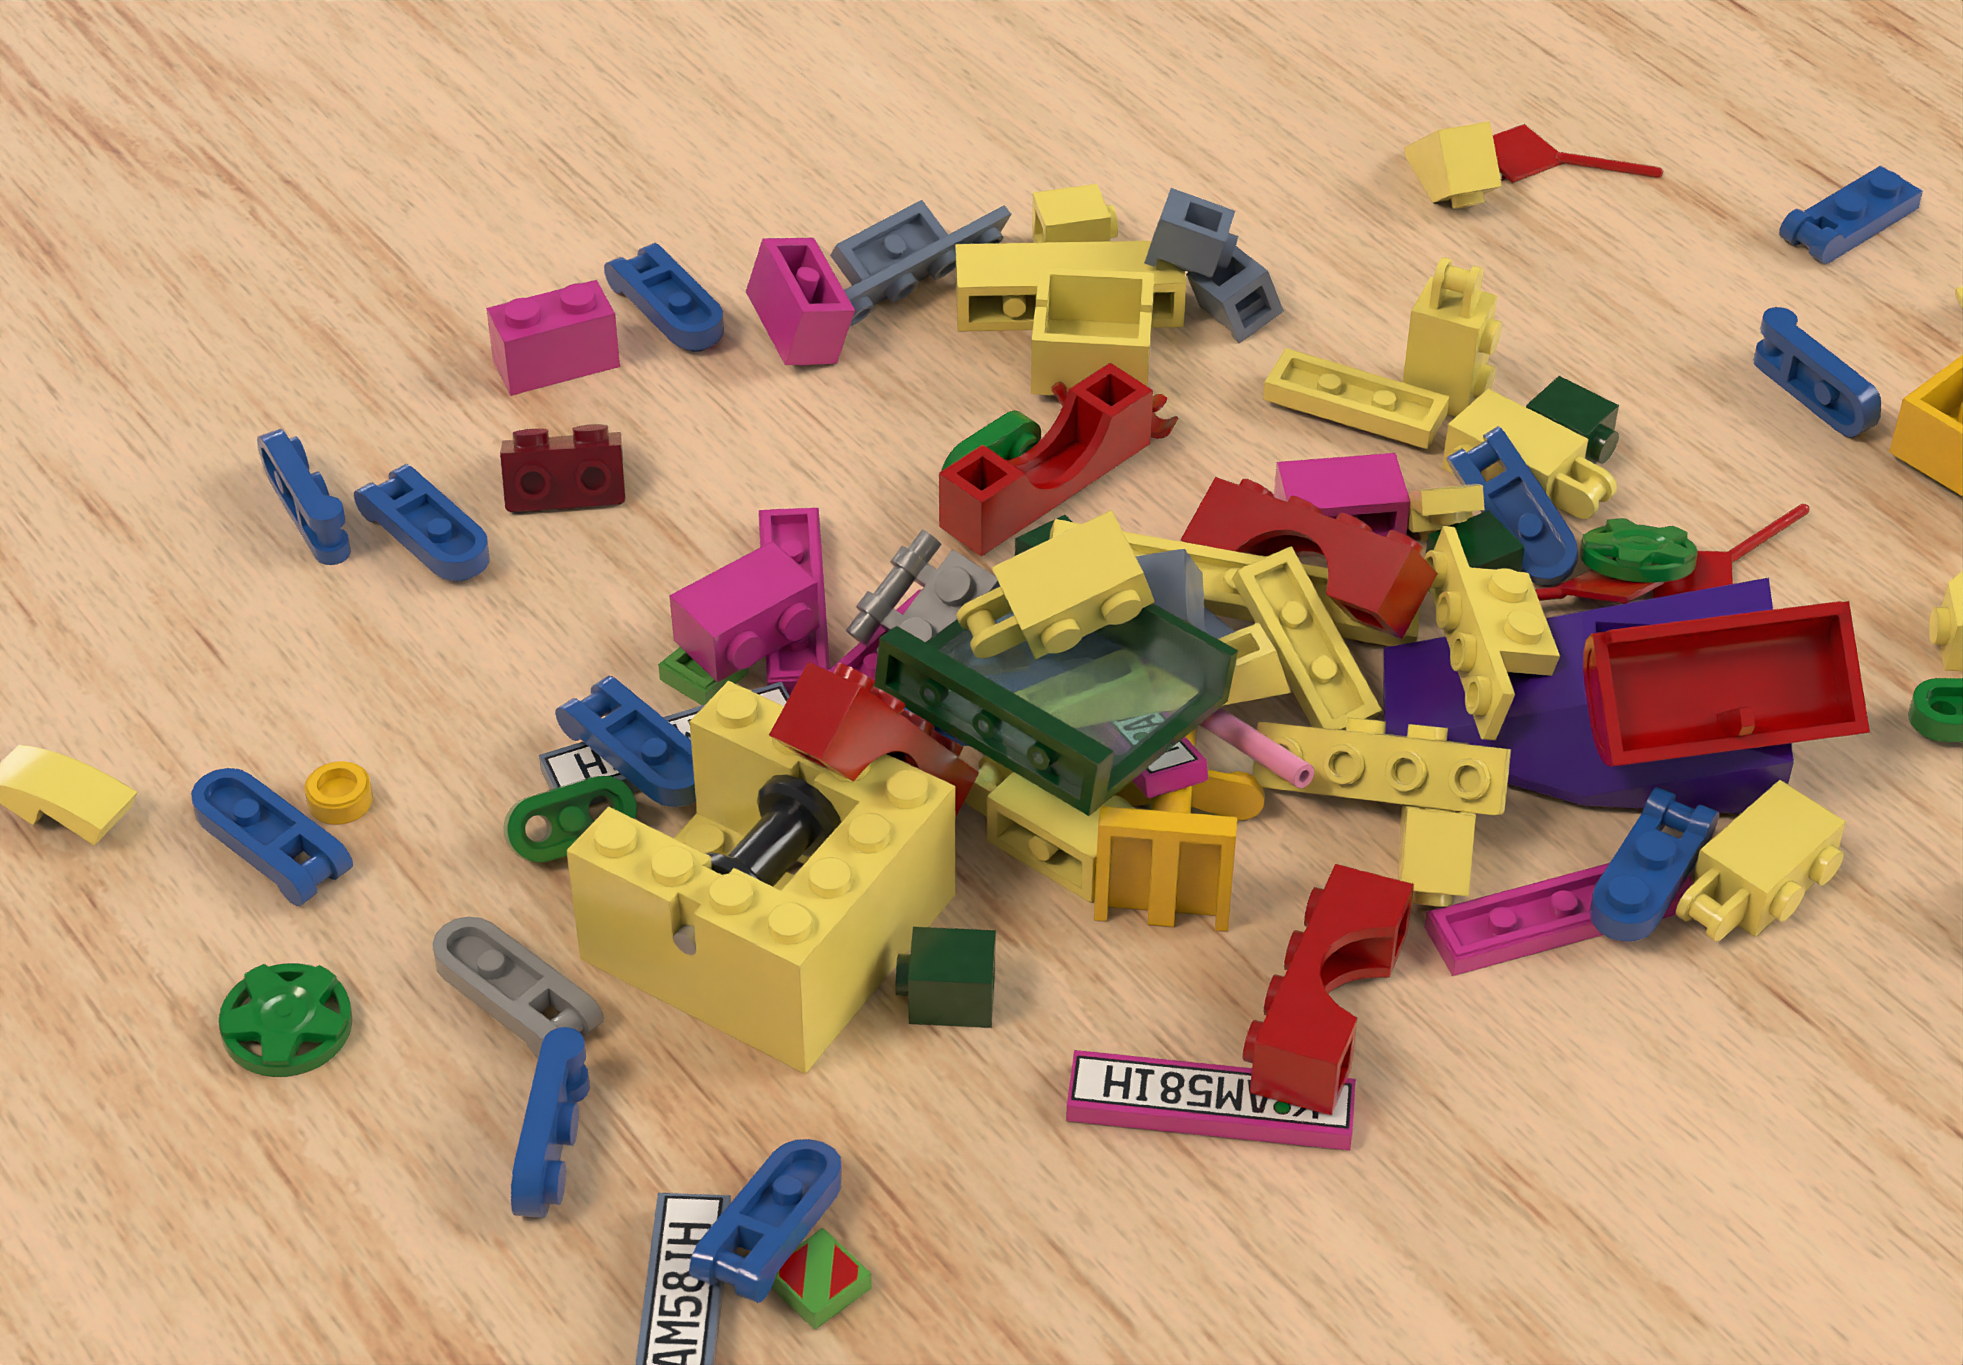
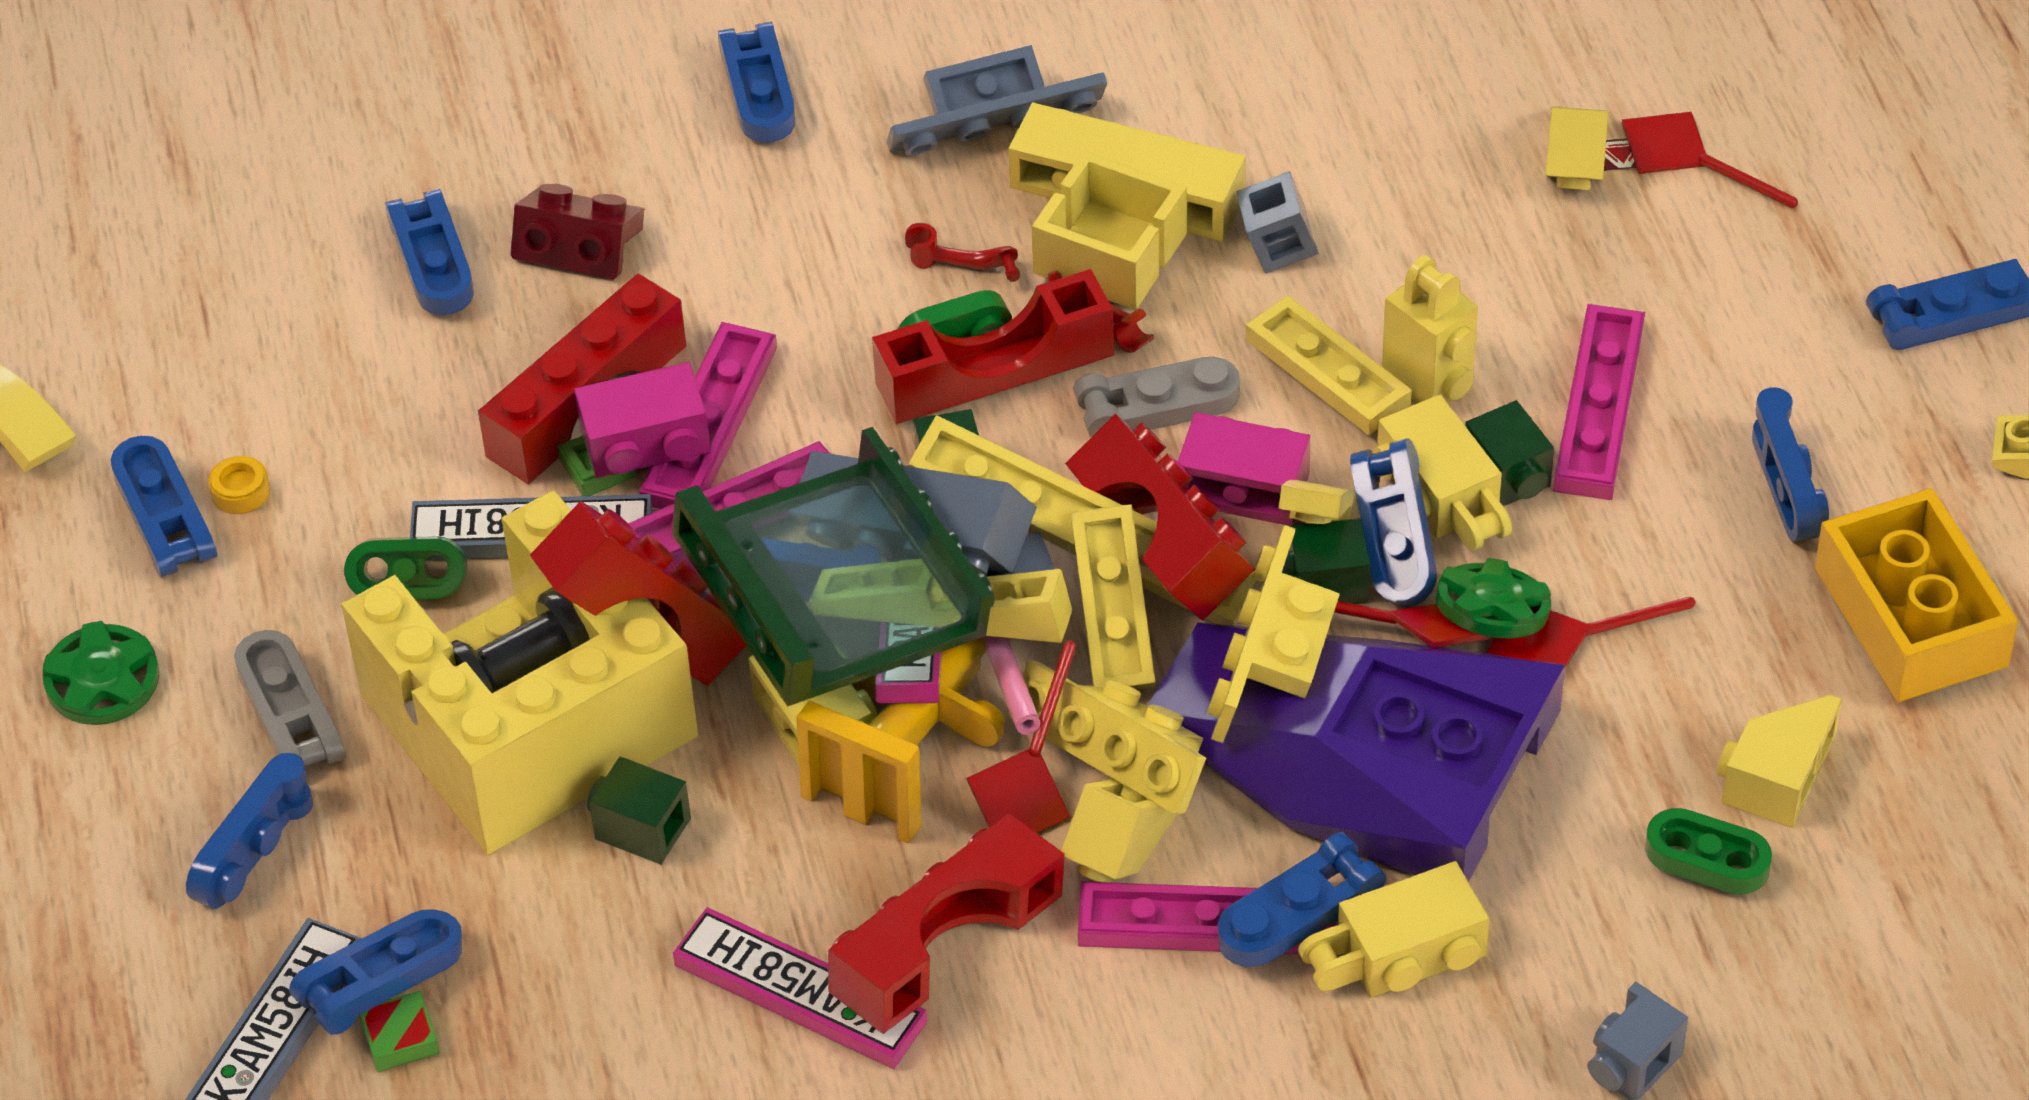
camera: 25 degrees right, 5 degrees up
(305, 497) = (341, 195): blue plate -> none
(553, 337) = (629, 96): dark pink brick -> none
(632, 622) = (538, 410): none -> red arch
(633, 741) = (479, 498): blue plate -> none
(799, 301) = (862, 121): dark pink brick -> none
(913, 391) = (925, 252): none -> red piece
(935, 606) = (809, 456): flat silver plate -> none
(1059, 592) = (863, 493): light yellow brick -> none
(1072, 215) = (1169, 103): light yellow brick -> none
(1193, 234) = (1242, 156): sand blue brick -> none
(1235, 453) = (1160, 394): none -> light grey plate
(1313, 837) = (1023, 781): none -> red piece
(1610, 365) = (1599, 402): none -> dark pink tile
(1724, 683) = (1425, 759): red container -> none

